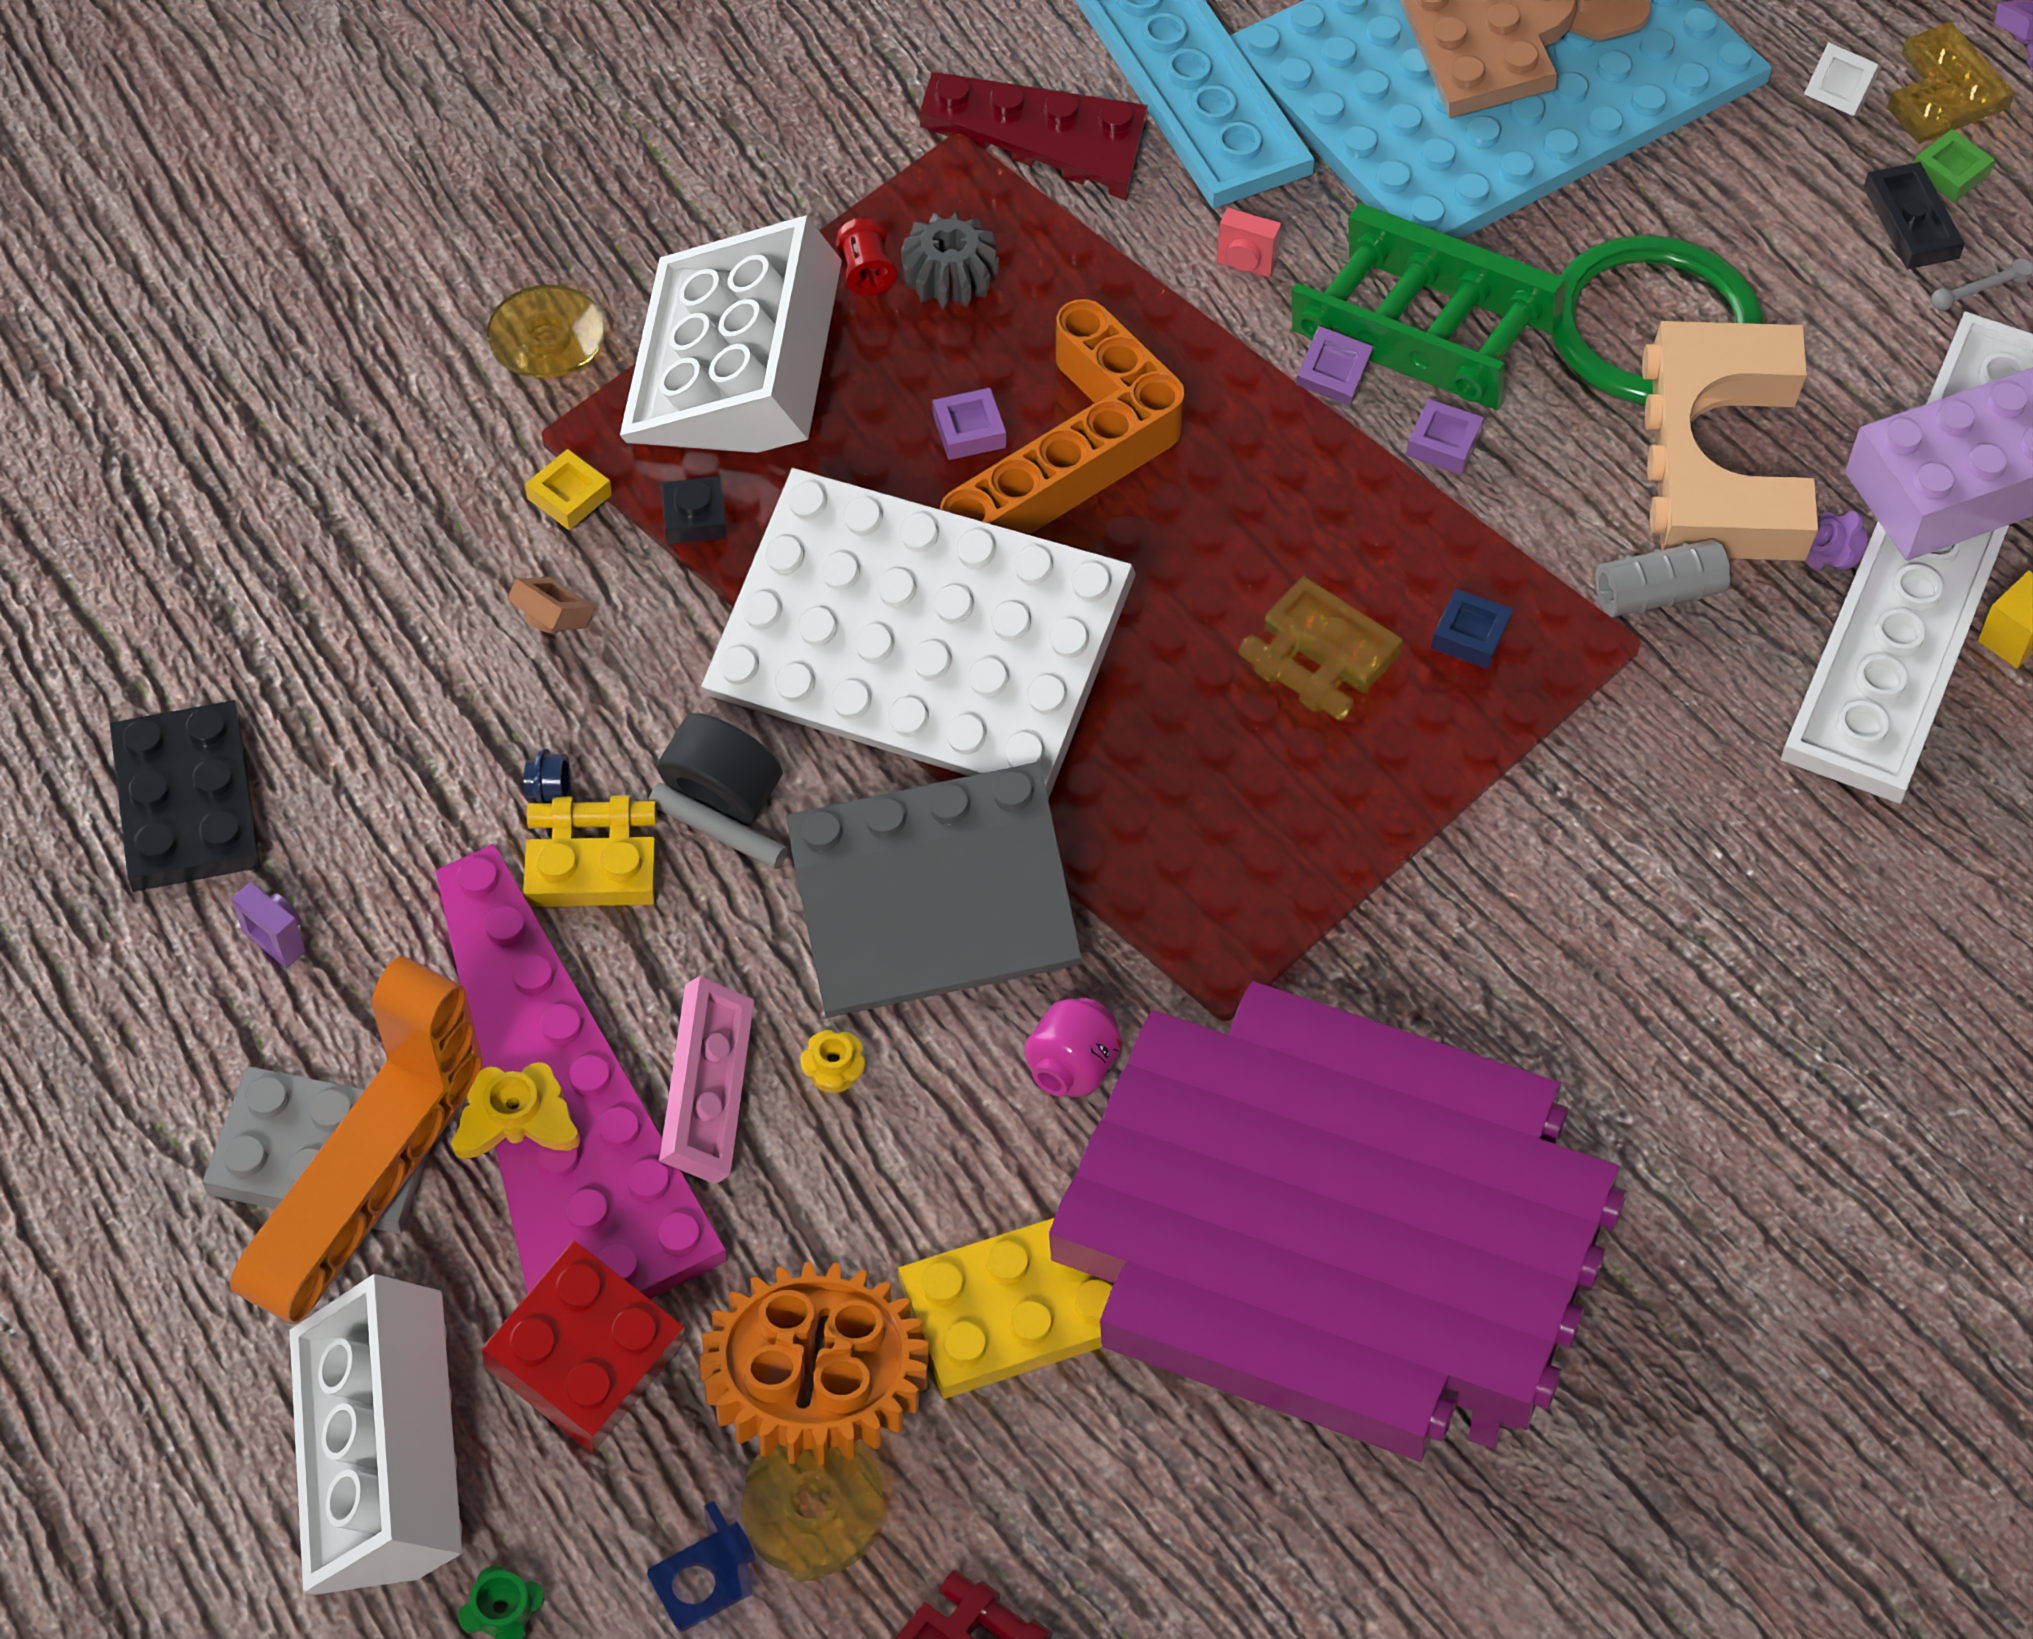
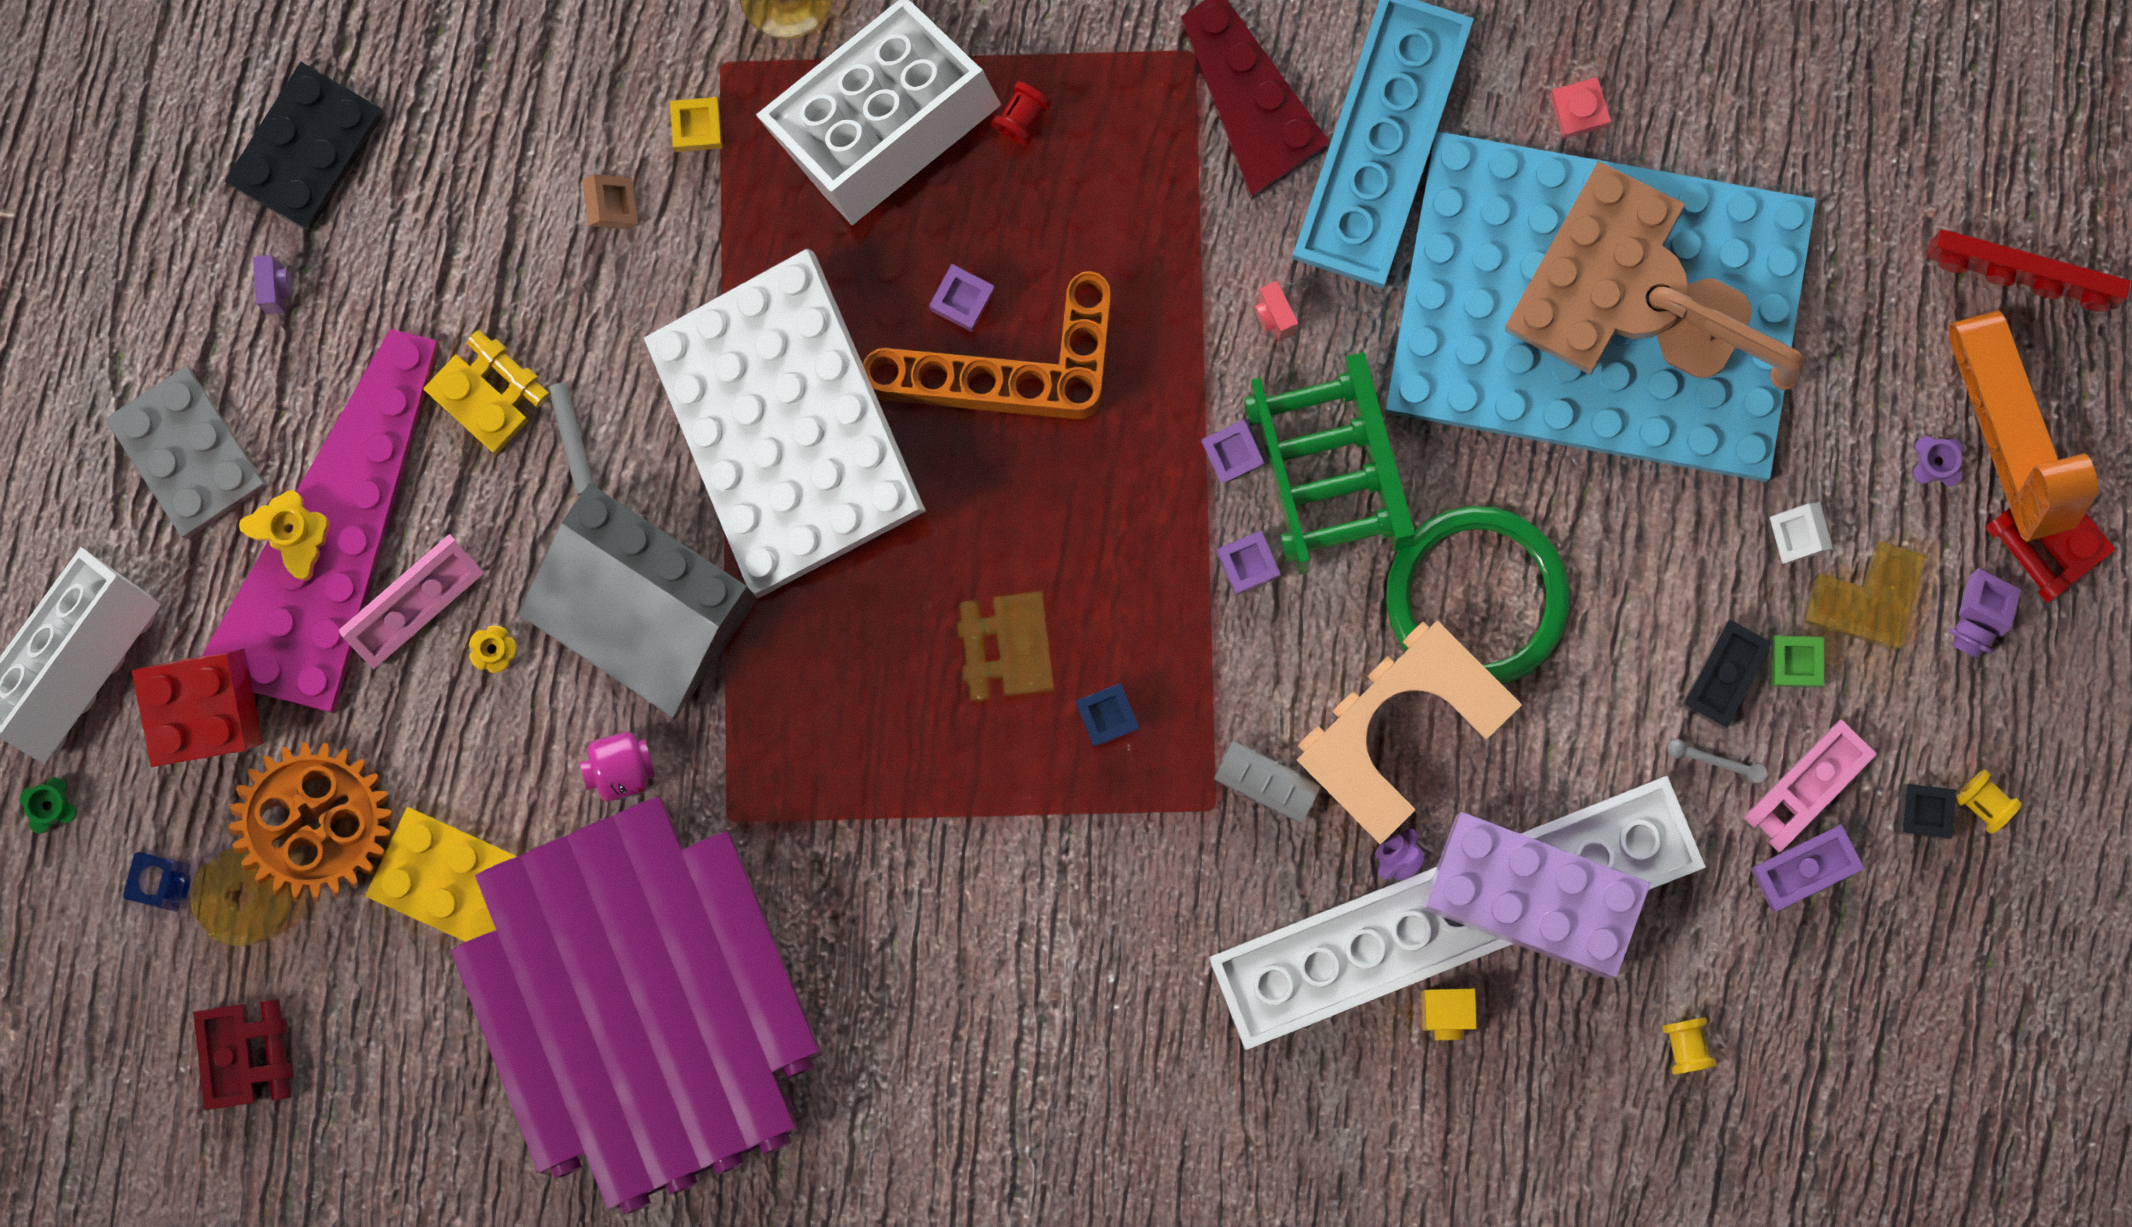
camera: 50 degrees right, 25 degrees up
(373, 1149) = (243, 473): orange beam -> none
(547, 777) = (504, 323): dark blue plate -> none
(693, 510) = (748, 210): black plate -> none
(720, 767) = (592, 411): black tyre -> none
(949, 260) = (1084, 156): dark grey gear -> none

